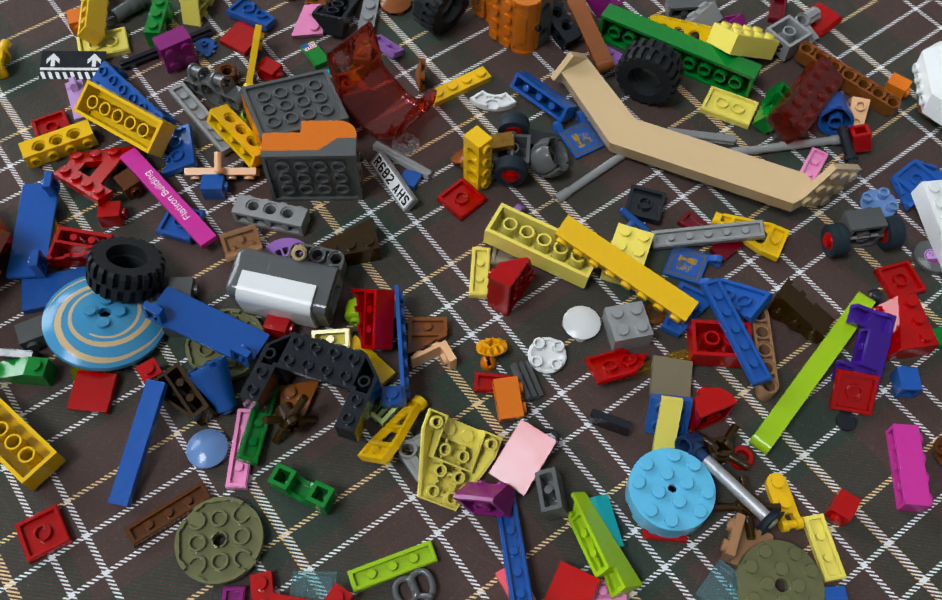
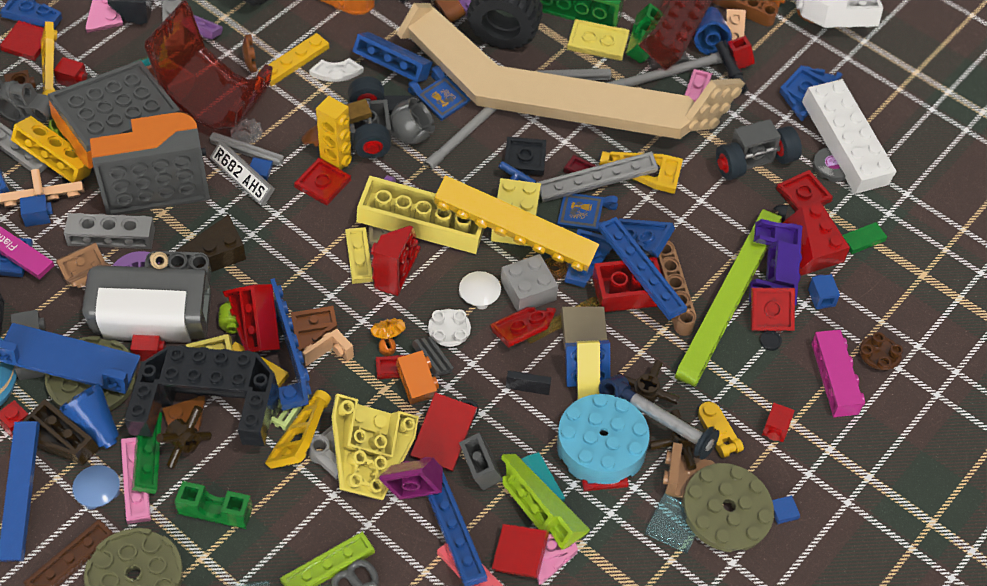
camera: 15 degrees left, 5 degrees down
(314, 54) = (118, 47): green tile -> none
(710, 407) = (630, 348): red brick -> none
(726, 250) = (620, 189): dark red tile -> none
(746, 452) = (675, 388): red piece -> none
(799, 313) = (705, 241): dark brown wedge -> none
(823, 548) = (766, 465): light yellow tile -> none
(880, 198) = (774, 111): medium blue dish -> none

